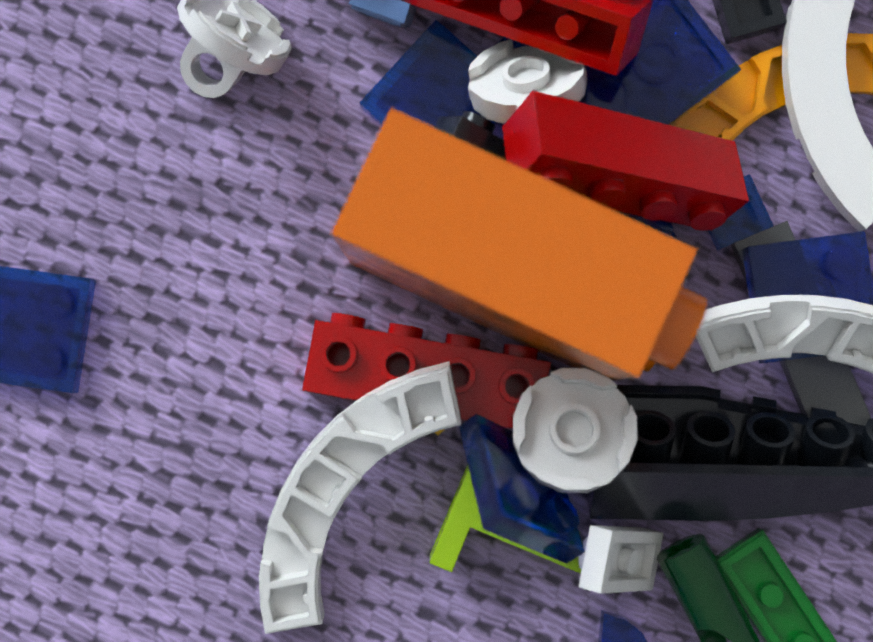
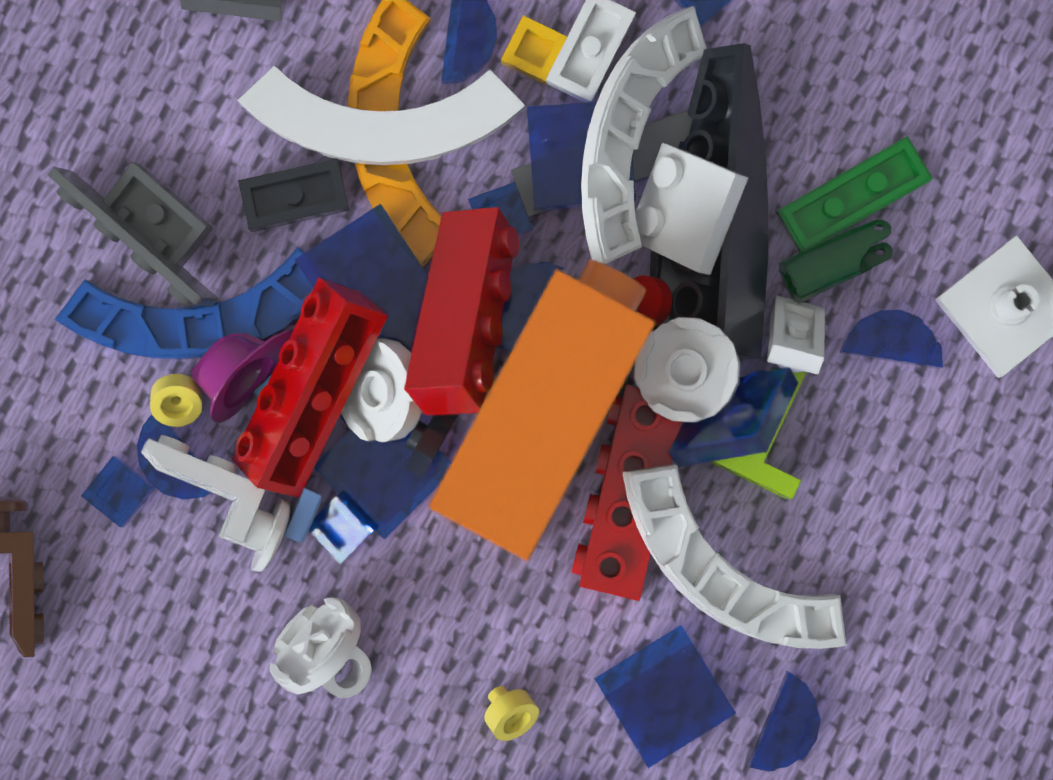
camera: 90 degrees left, 0 degrees up
(167, 571) = (789, 727): none -> clear blue plate
(171, 253) = (510, 713): none -> light yellow tile
(197, 427) = (665, 696): none -> clear blue plate
(371, 55) = (342, 526): none -> clear blue tile
(650, 391) = (657, 299): none -> red tile
(763, 424) = (688, 208): none -> white plate

